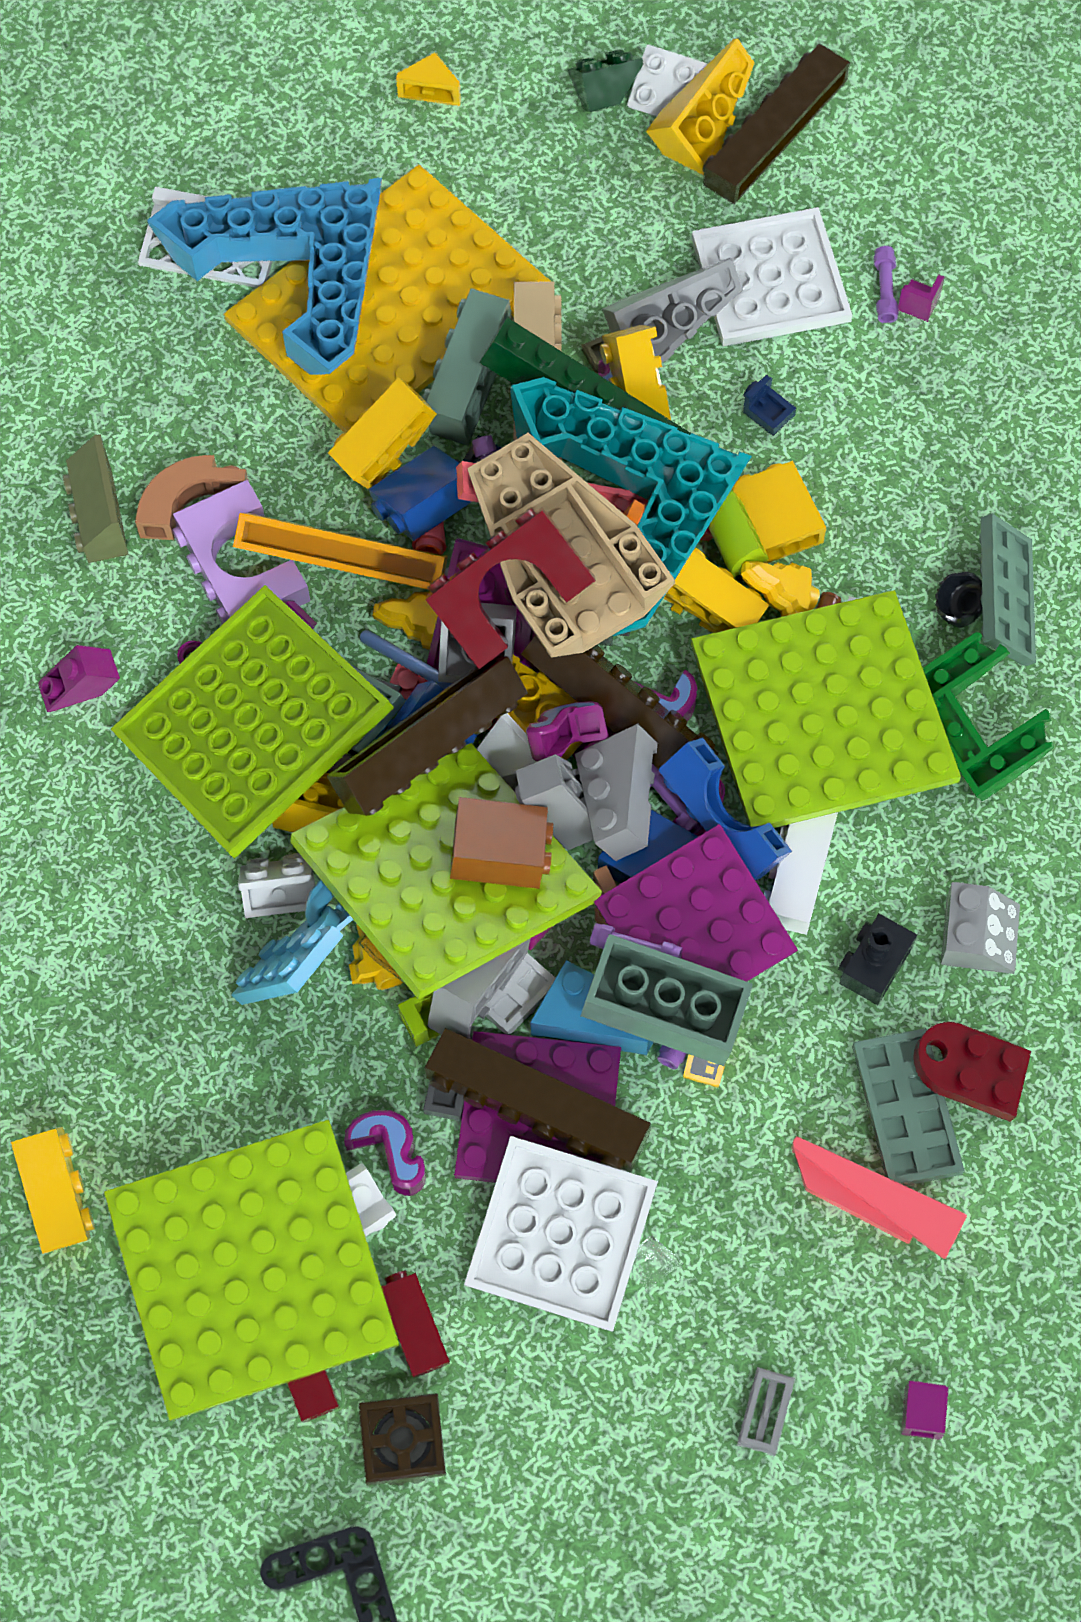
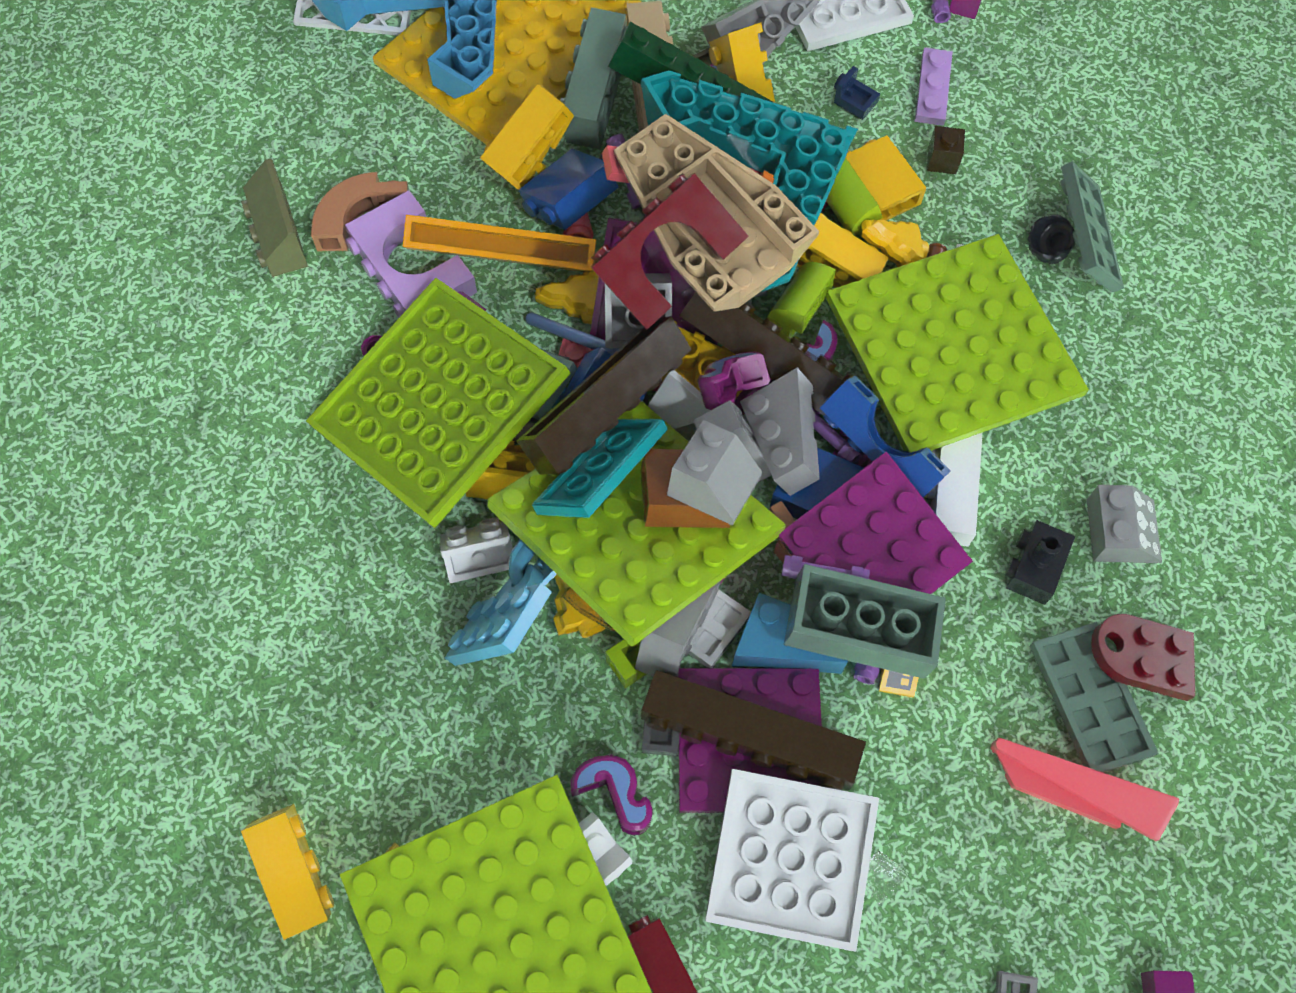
camera: 10 degrees left, 0 degrees up
(78, 677) = (271, 377): magenta slope -> none
(410, 813) = (600, 469): none -> teal tile
(525, 830) = (714, 473): none -> light grey slope
(663, 644) = (802, 297): none -> lime brick
(859, 482) = (945, 150): none -> dark brown brick
(862, 402) = (933, 86): none -> lavender plate
(982, 766) = (1104, 379): green wedge -> none

